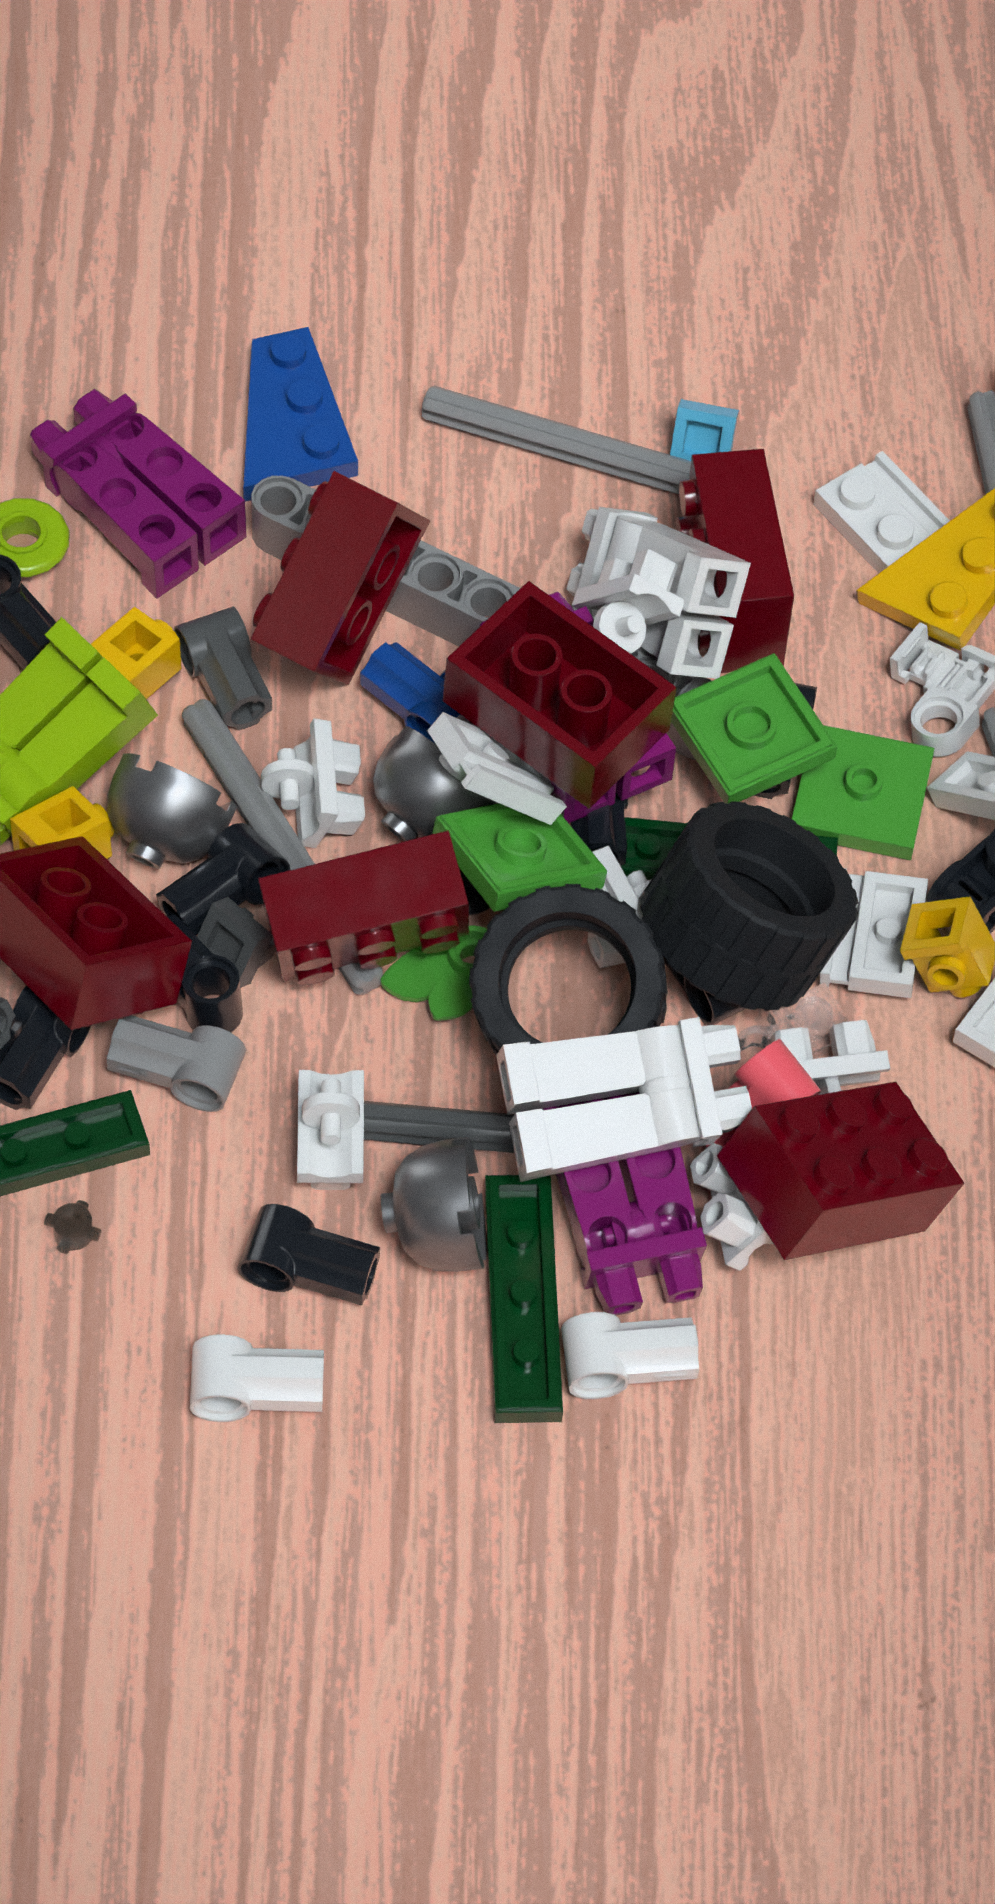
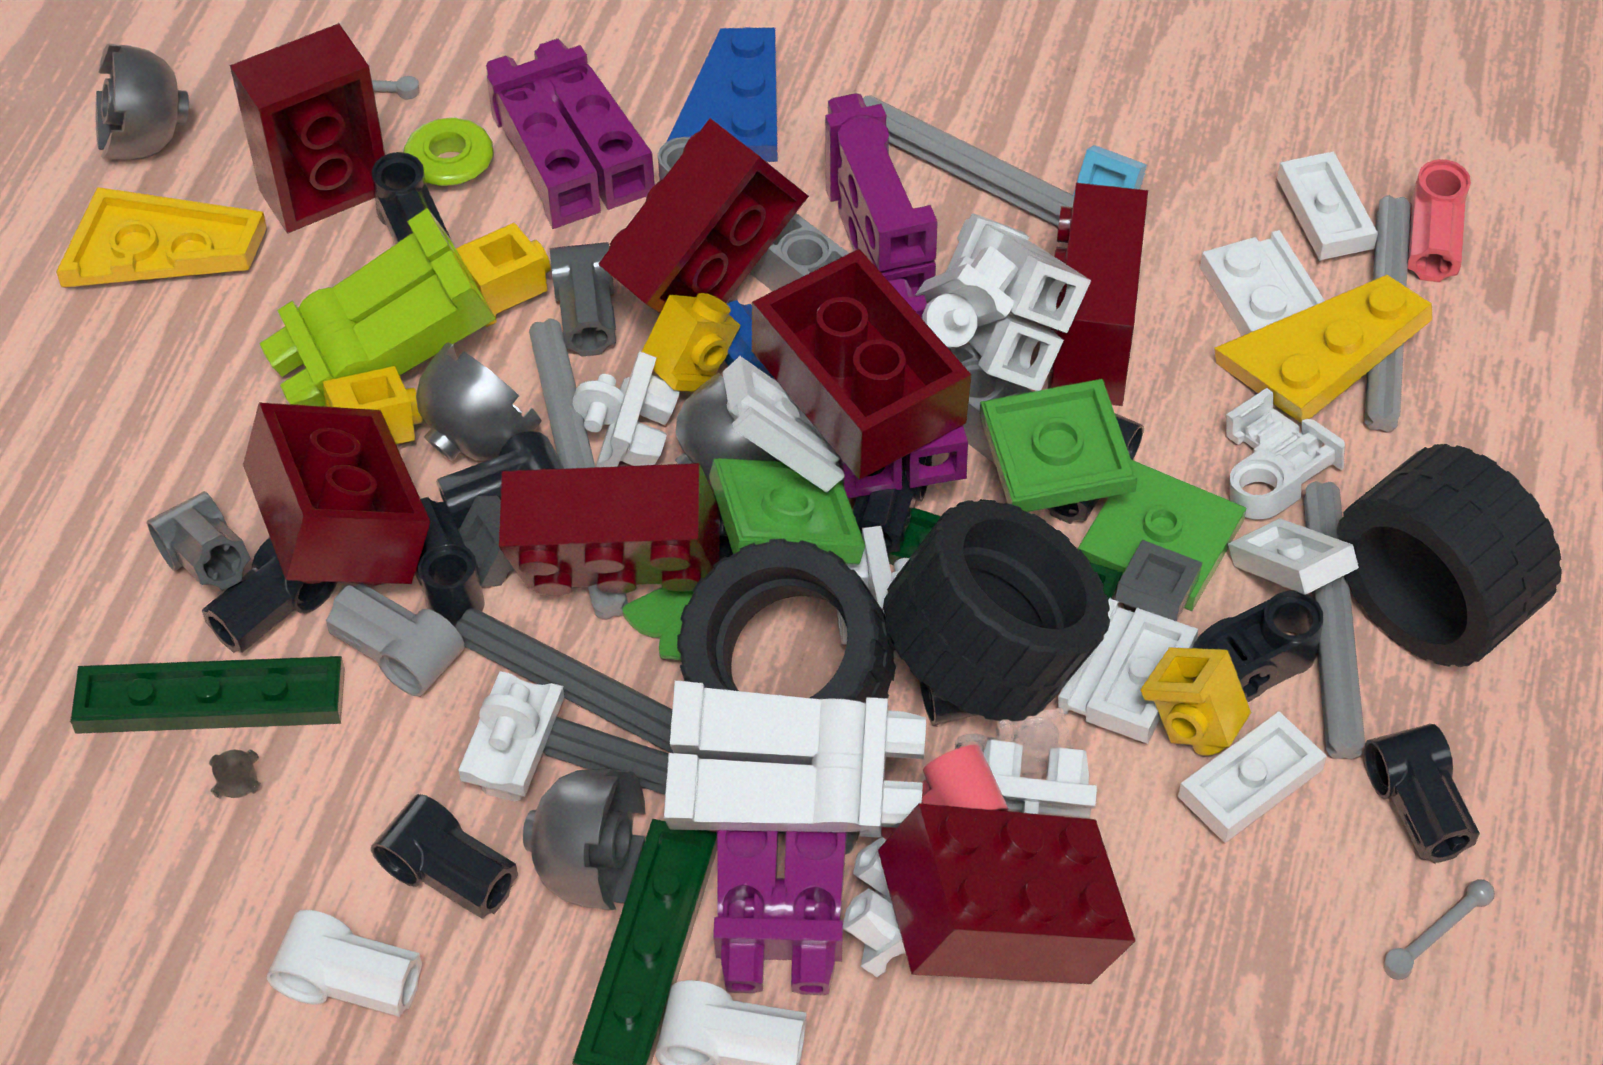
camera: 20 degrees right, 5 degrees down
(358, 696) = (691, 340): none -> yellow brick
(380, 1065) = (580, 682): none -> dark grey axle
(483, 503) = (871, 196): none -> magenta hips
(878, 840) = (1158, 581): none -> dark grey tile
(920, 414) = (1327, 205): none -> white plate

